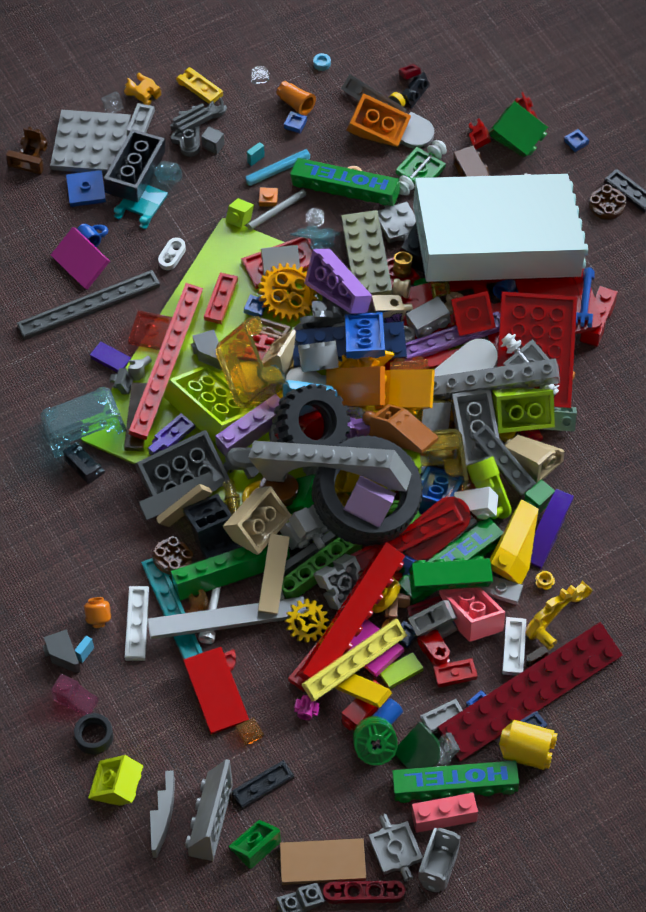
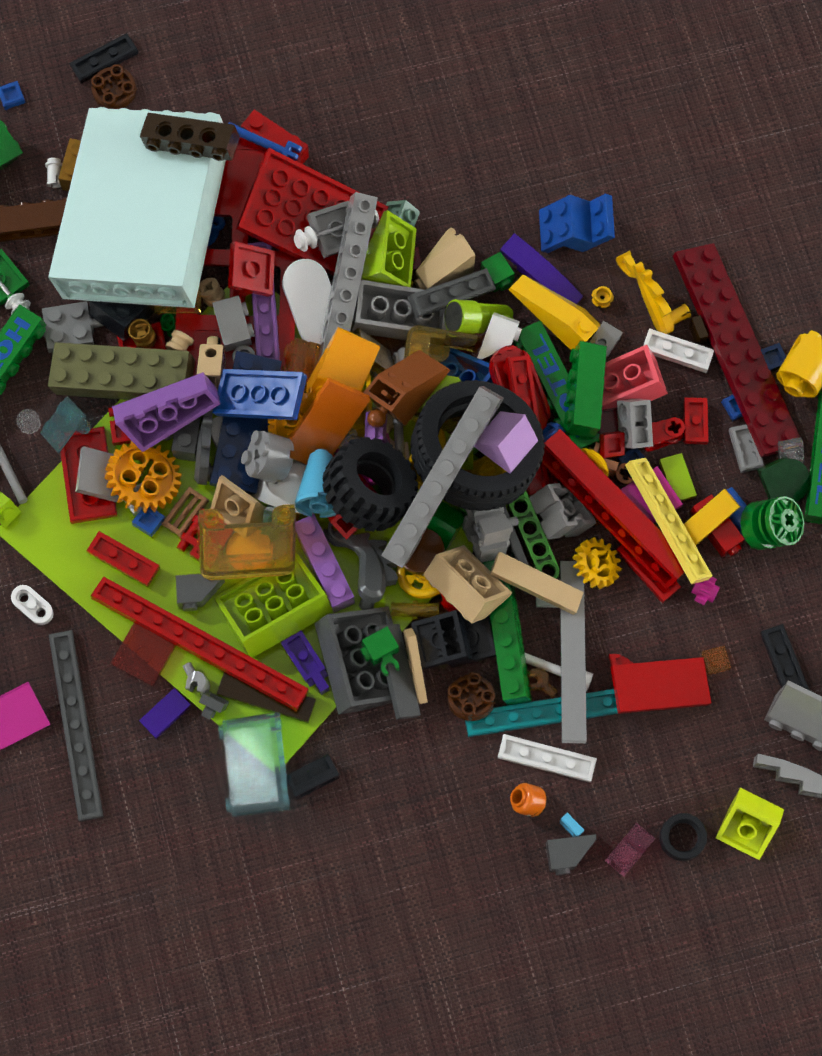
camera: 80 degrees left, 15 degrees up
(188, 472) = (381, 648): none -> green brick
(410, 606) = (612, 444): none -> red plate
(556, 231) = (201, 132): none -> dark brown brick
(600, 541) = (576, 223): none -> blue bracket

